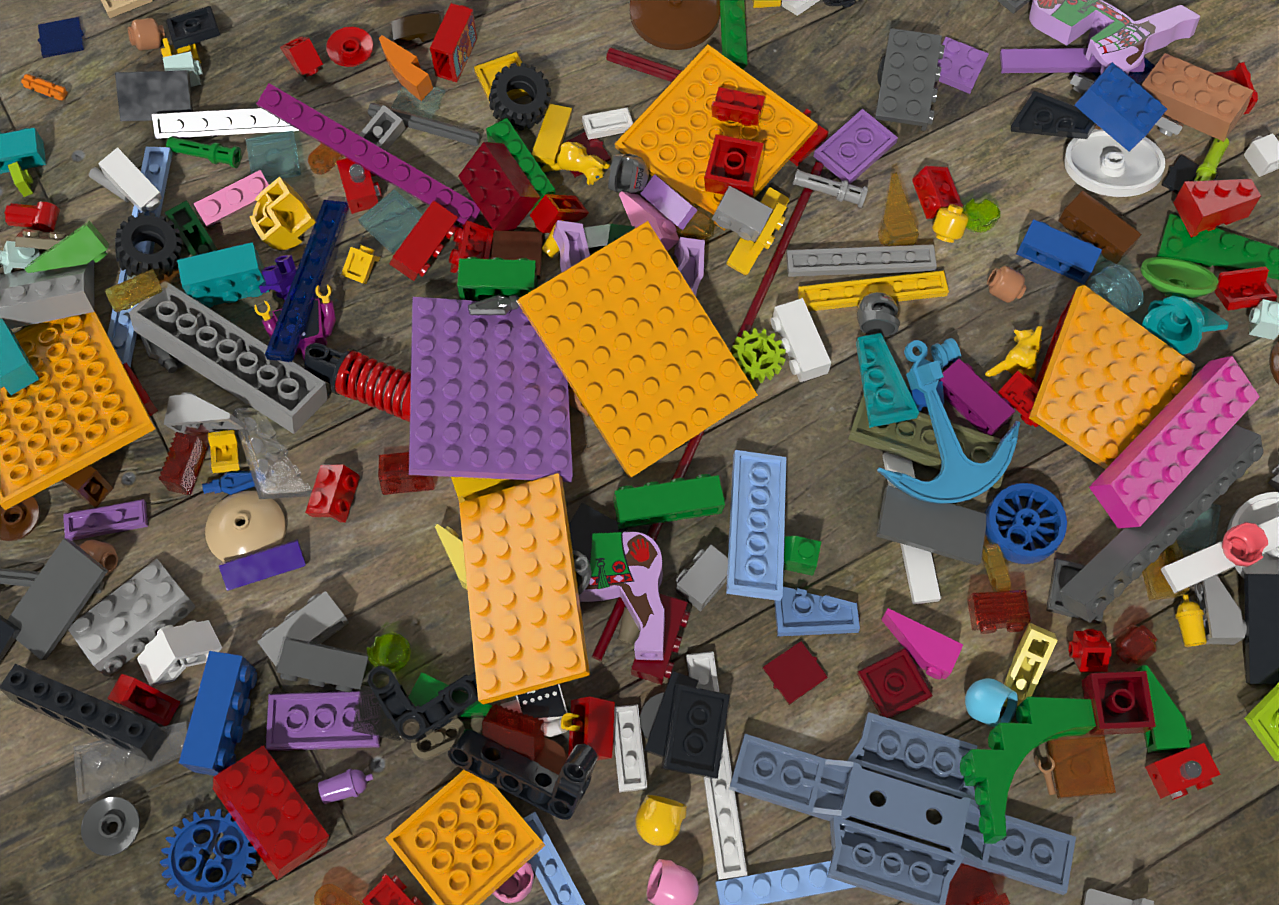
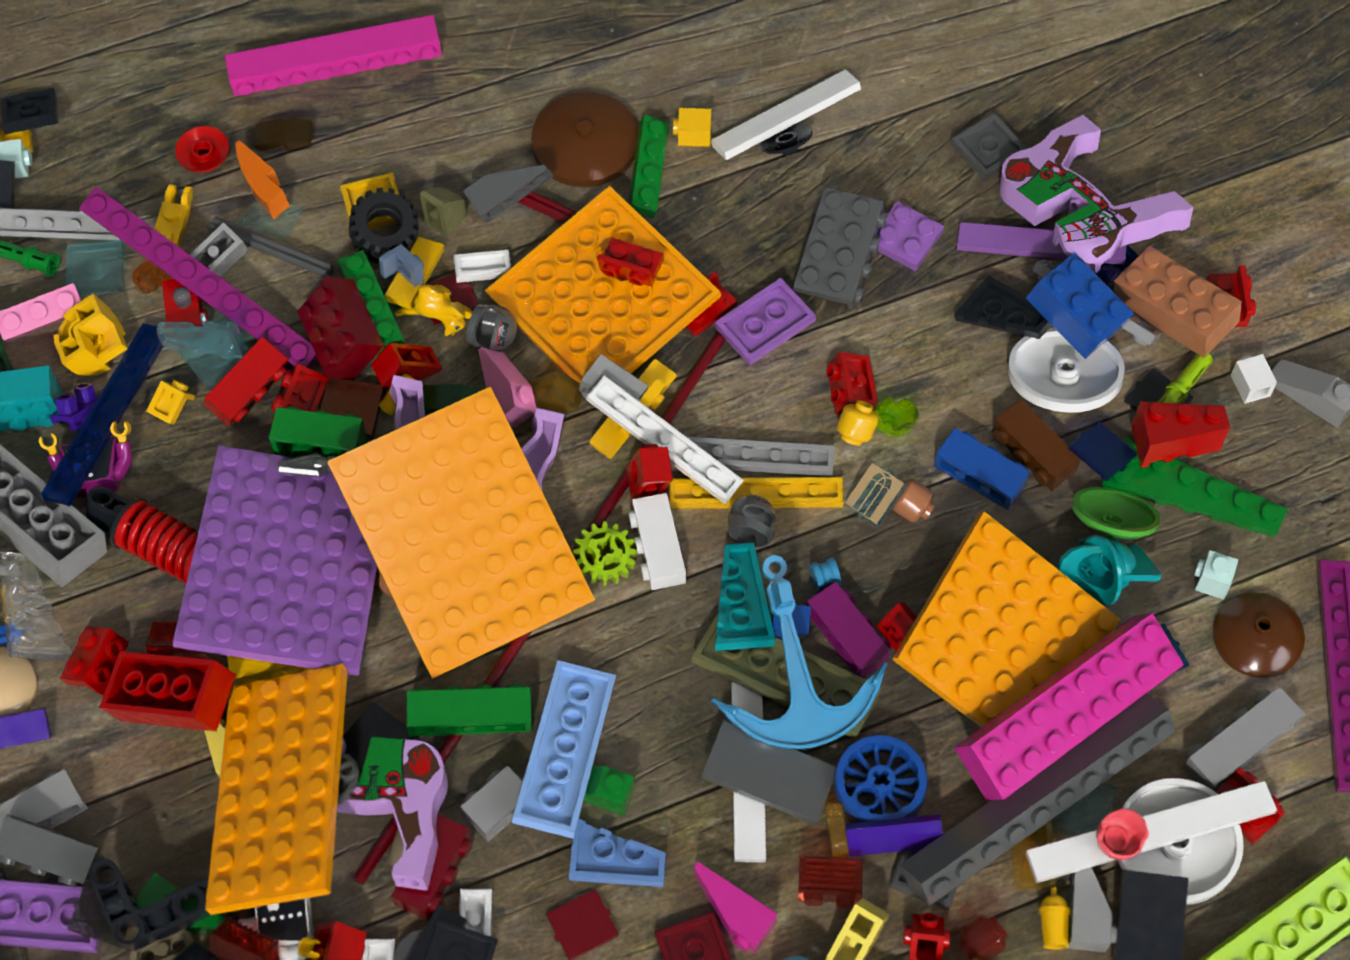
camera: 10 degrees right, 5 degrees down
(302, 56) = (146, 155): red slope -> none
(335, 105) = (174, 217): none -> yellow hinge
(380, 208) = (209, 339): none -> clear light blue wing
(389, 651) = (125, 846): clear neon green hair -> none
(406, 513) = (168, 691): none -> red brick
(453, 42) = (319, 156): red brick -> none
(543, 125) = (404, 262): none -> sand blue bracket
(567, 78) = (442, 209): none -> olive slope
(615, 56) = (501, 190): none -> dark grey slope
(668, 202) = (532, 365): medium lavender tile -> none
(733, 164) = (611, 330): red brick -> none
(786, 281) = (649, 471): none -> red brick
(793, 253) = (652, 429): none -> white tile
(841, 191) = (738, 371): light grey pin -> none
(897, 220) = (796, 412): clear yellow slope -> none
(976, 281) = (875, 494): none -> piece
(1023, 355) = (914, 586): yellow animal -> none
(1047, 566) = (892, 834): none -> dark purple tile
(1118, 288) = (1036, 522): clear light blue wheel -> none
(1158, 226) = (1102, 451): none -> clear blue piece
(1244, 288) = (1195, 534): red bracket -> none

